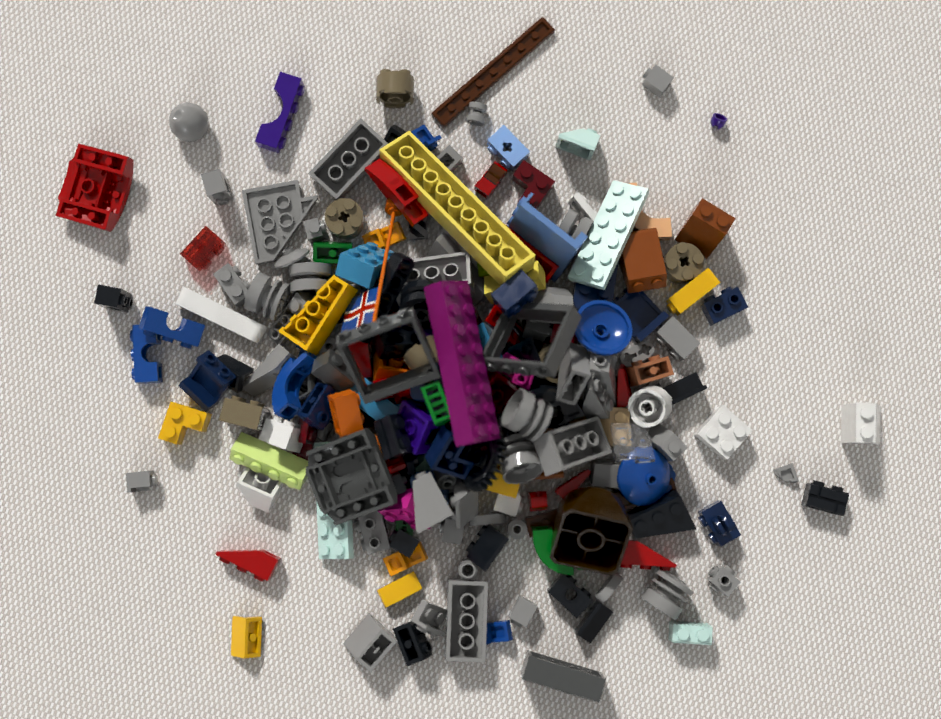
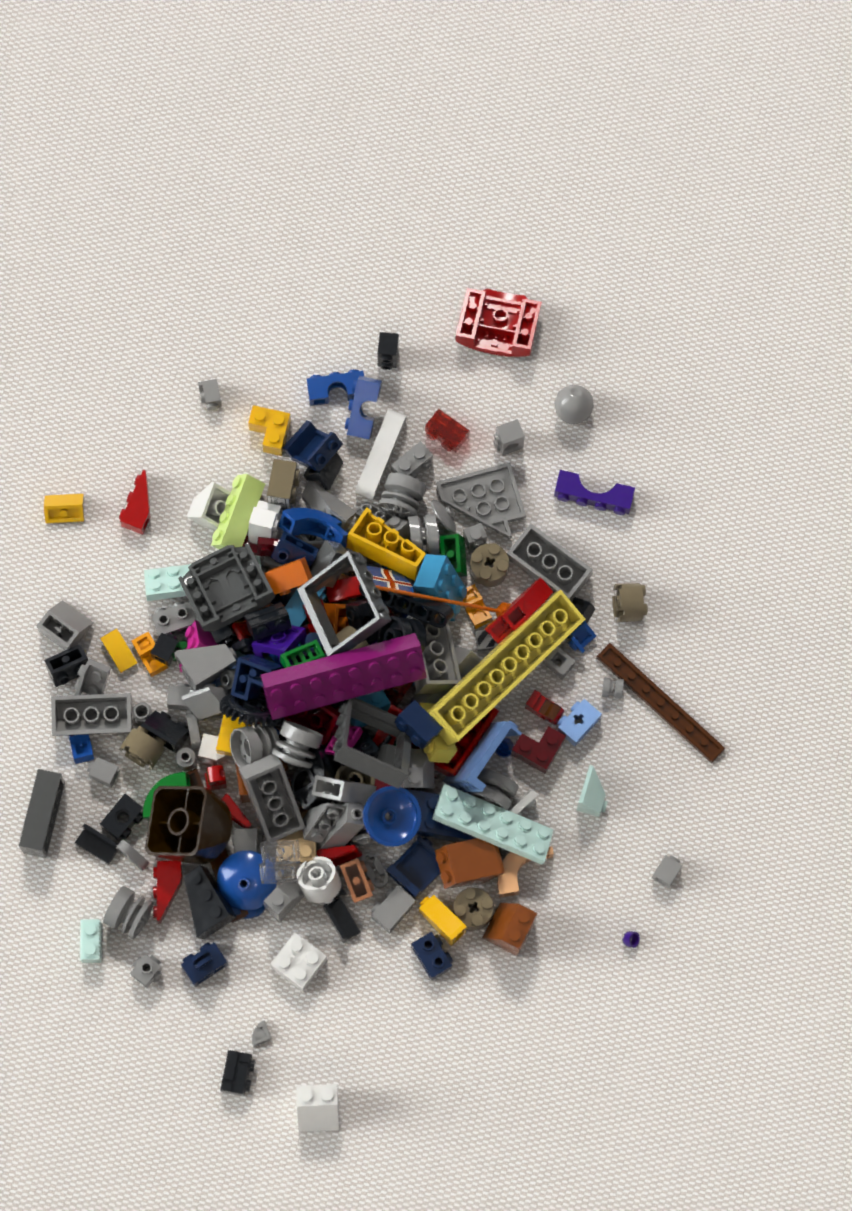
camera: 85 degrees right, 10 degrees down
(504, 571) = (142, 748): none -> dark tan brick

